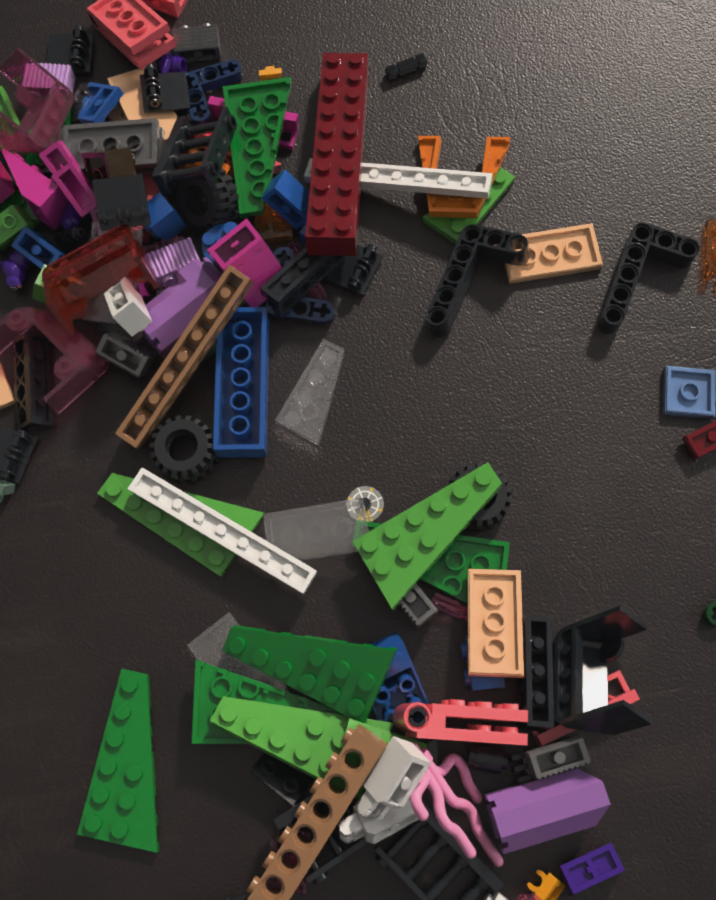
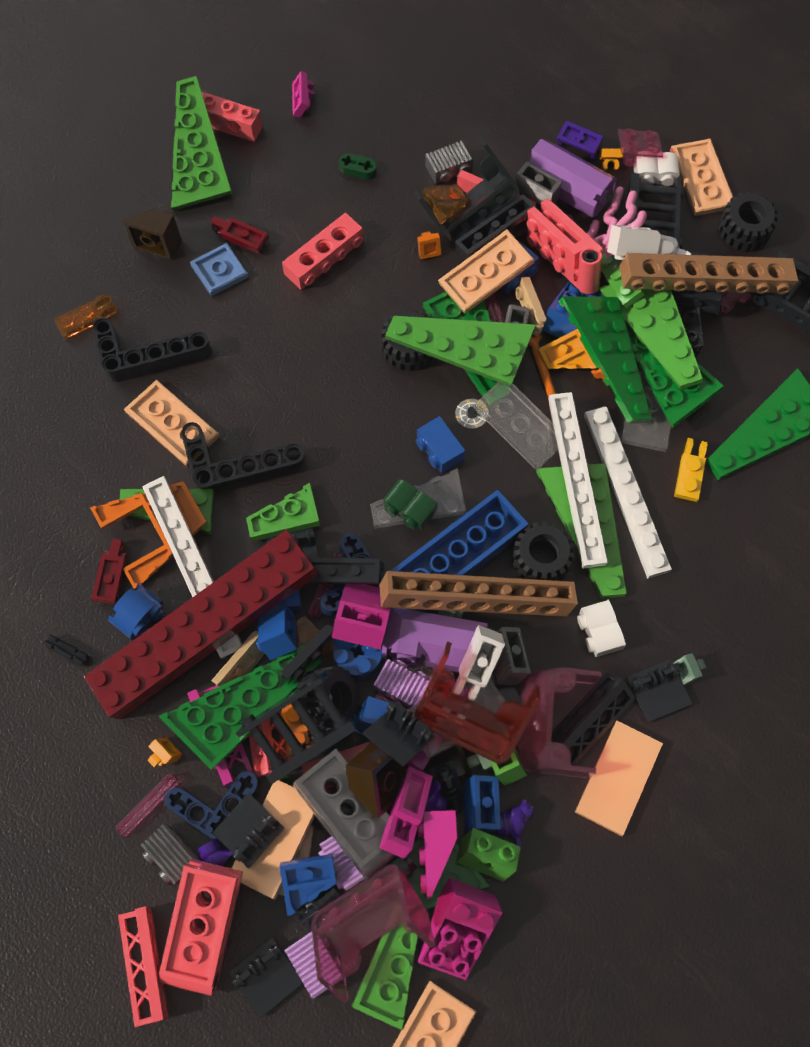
camera: 130 degrees left, 5 degrees down
(87, 447) = (602, 629): none -> white brick
(149, 648) = (691, 472): none -> yellow hinge
(183, 575) = (627, 493): none -> white plate
(245, 52) = (146, 805): none -> clear pink axle
(247, 203) = (310, 653): none -> black hinge
(290, 159) = (241, 662): none -> tan hinge
(312, 372) = (409, 504): none -> dark green brick
(352, 446) = (440, 445): none -> blue brick
(355, 625) = (567, 353): none -> light orange wing
(389, 282) = (292, 513): none -> bright green wing
(390, 617) = (534, 344): none -> orange piece
(391, 119) = (136, 612): none -> blue brick
(424, 637) = (528, 298): none -> tan hinge
(444, 125) = (110, 574): none -> dark red hinge
(573, 600) = (429, 245): none -> orange tile
(607, 645) = (444, 200): none -> clear orange wing
(640, 457) = (335, 240): none -> coral brick
(663, 700) = (448, 162): none -> flat silver brick

